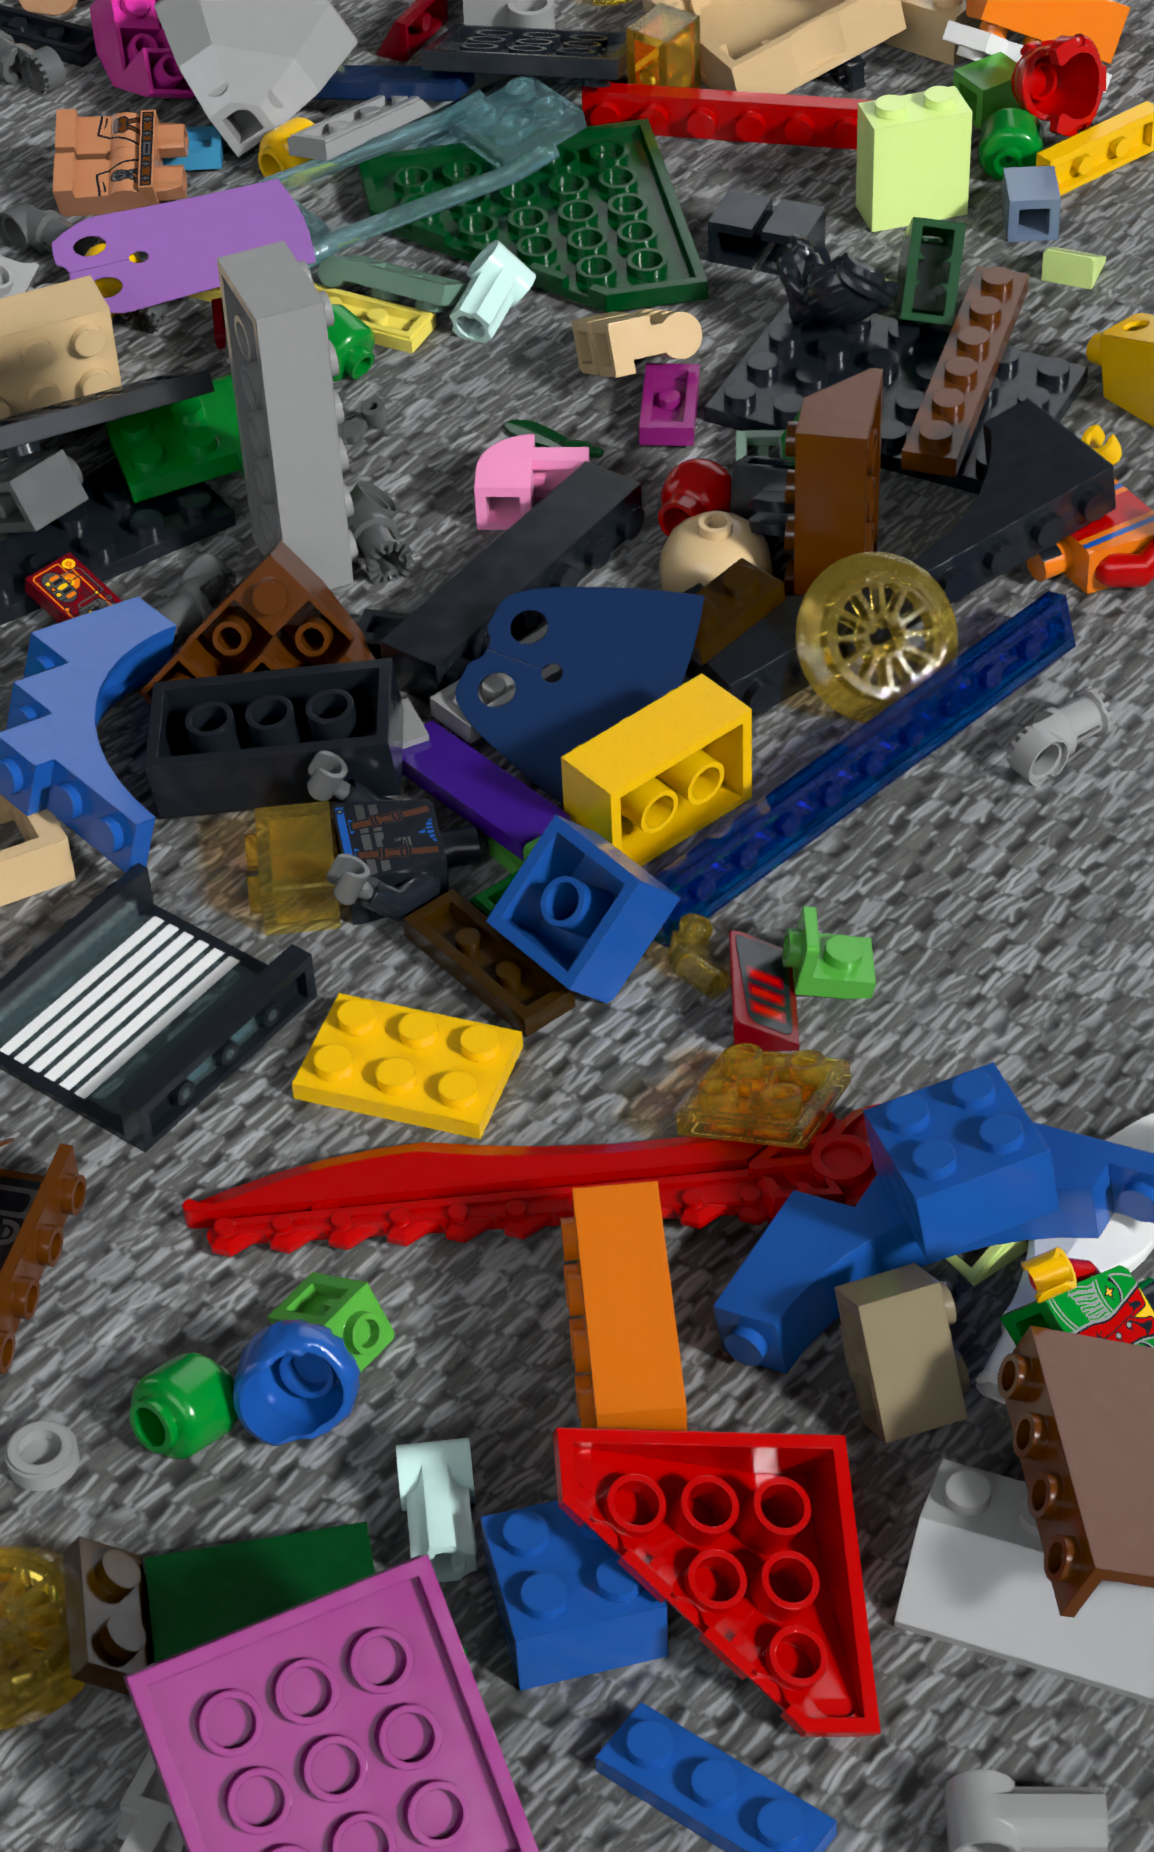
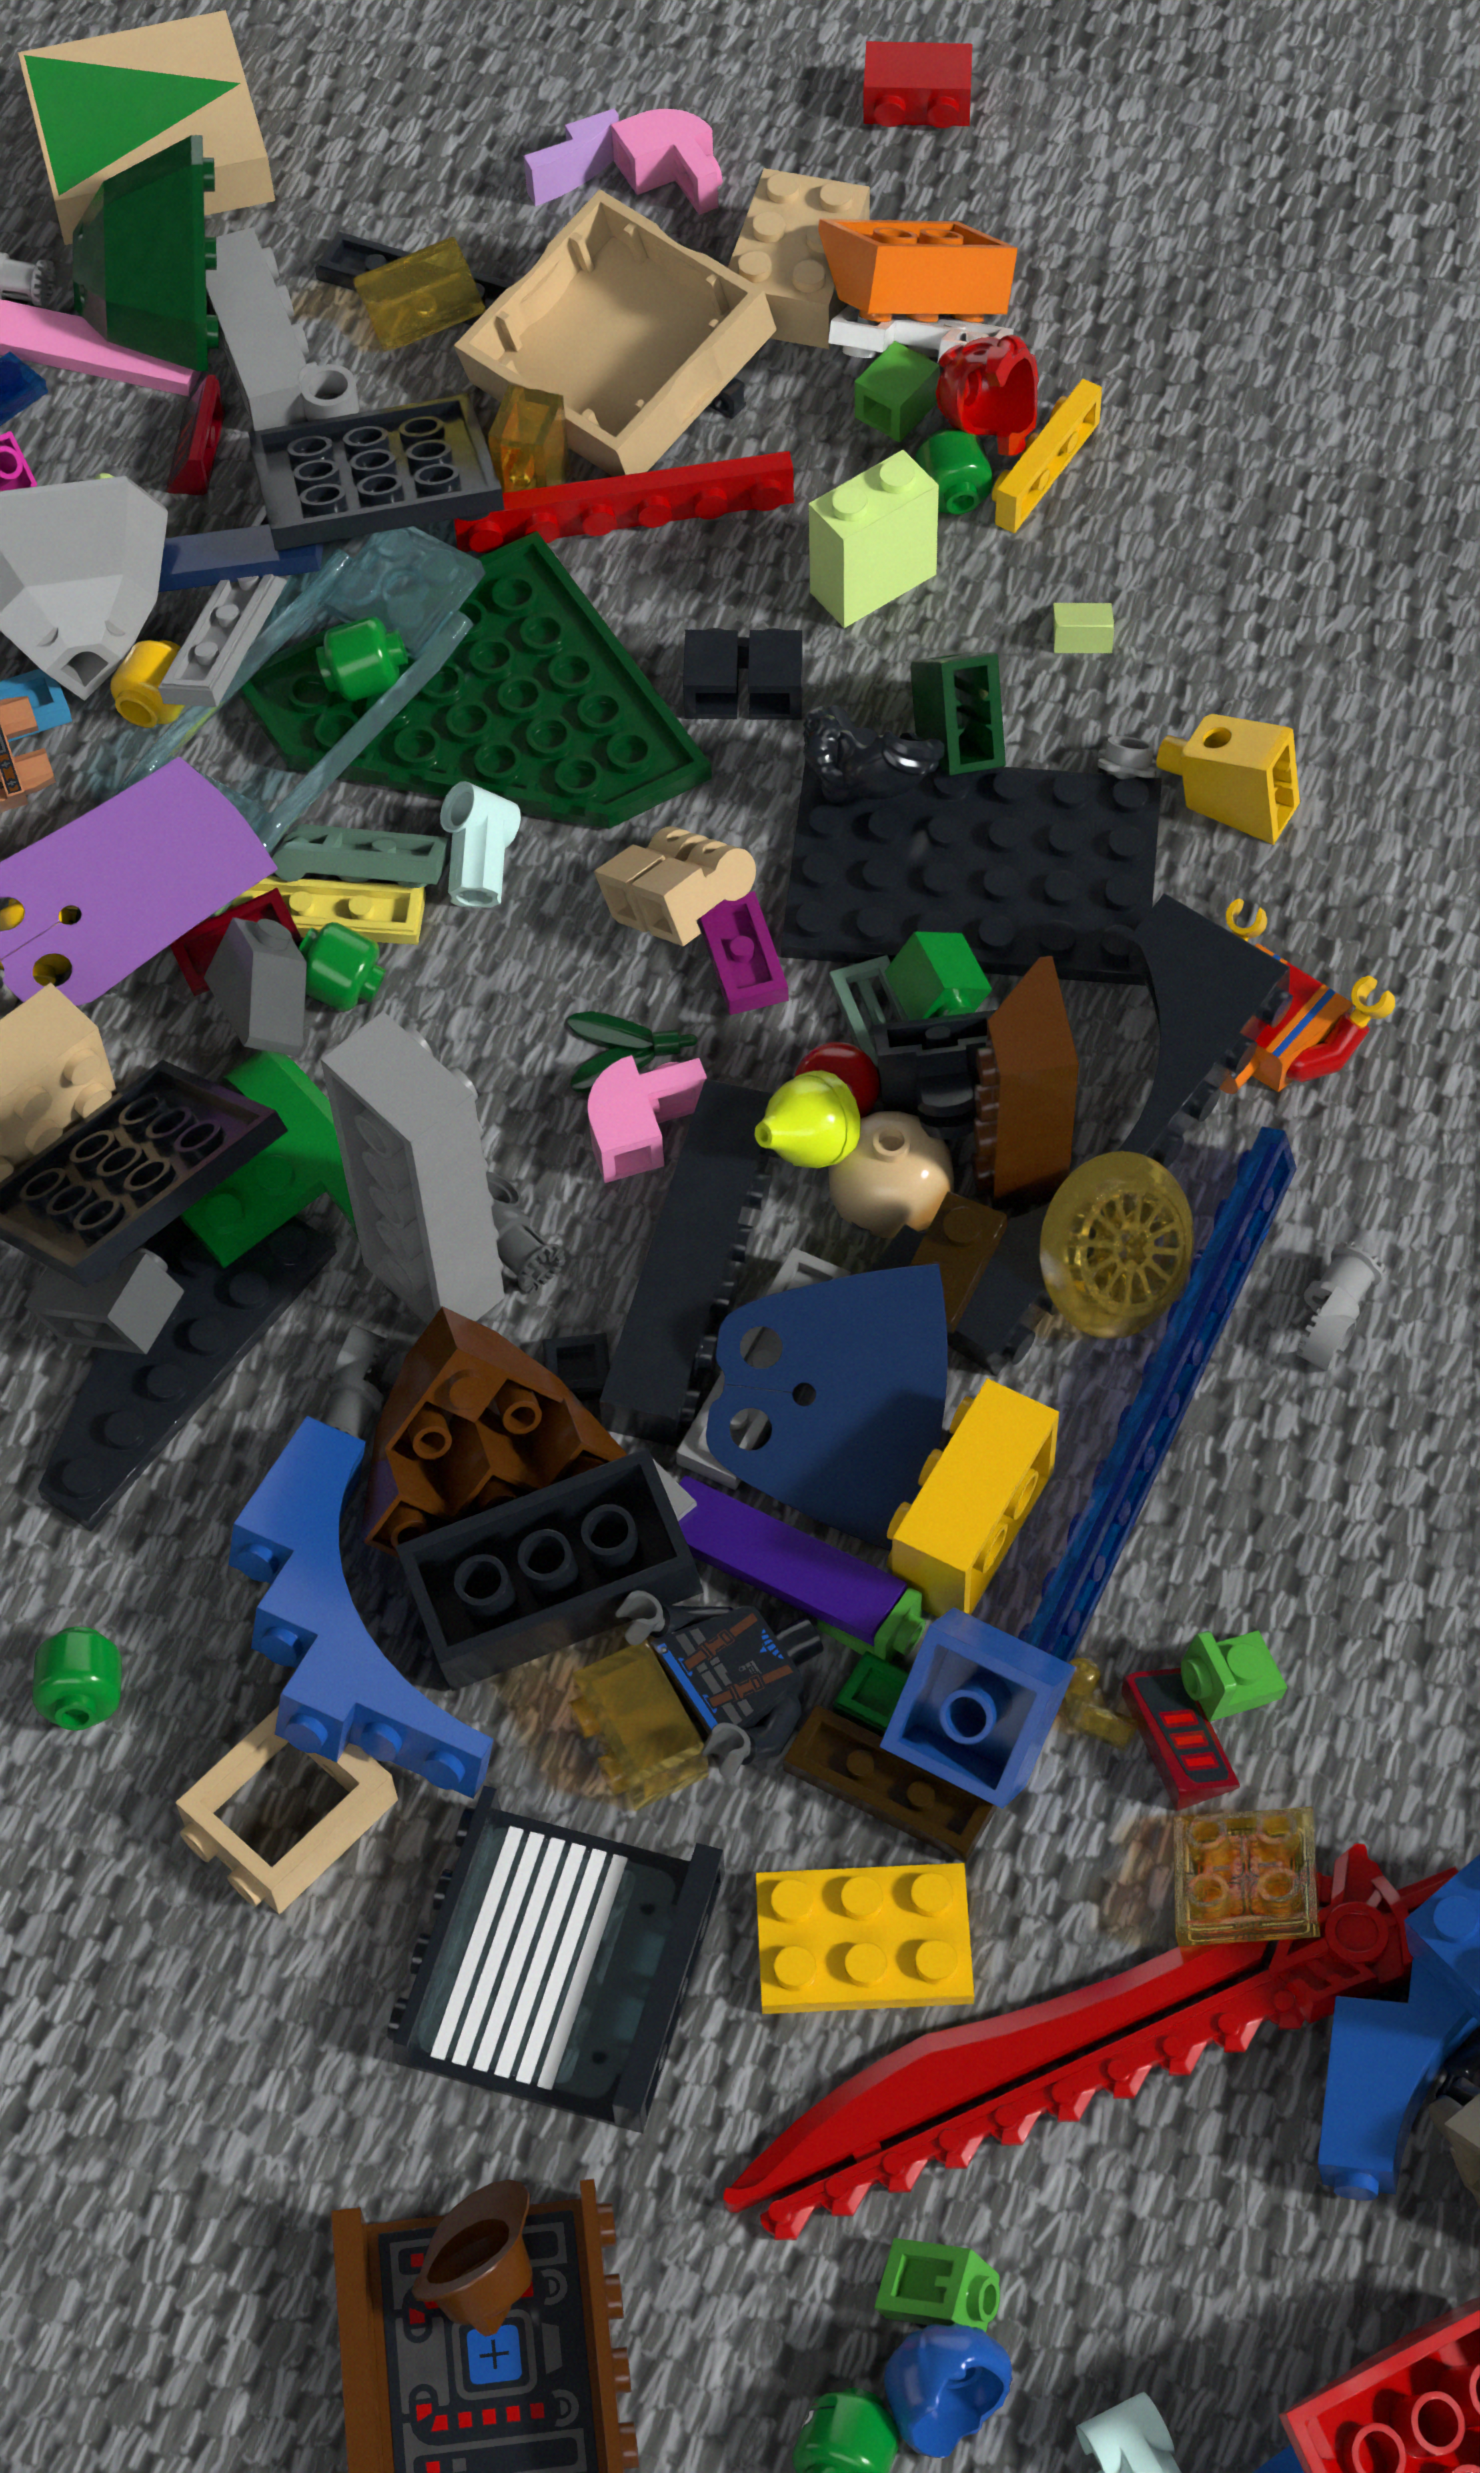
camera: 20 degrees left, 15 degrees up
(68, 589) = (228, 1425): tile -> none
(456, 152) = (361, 658): none -> green head
(626, 1310) = (1256, 2234): orange brick -> none
(651, 496) = (811, 1121): none -> neon yellow helmet
(965, 372) = (1047, 826): reddish brown plate -> none
(1030, 203) = (1009, 554): sand blue brick -> none
(1064, 346) = (1127, 758): none -> light grey plate

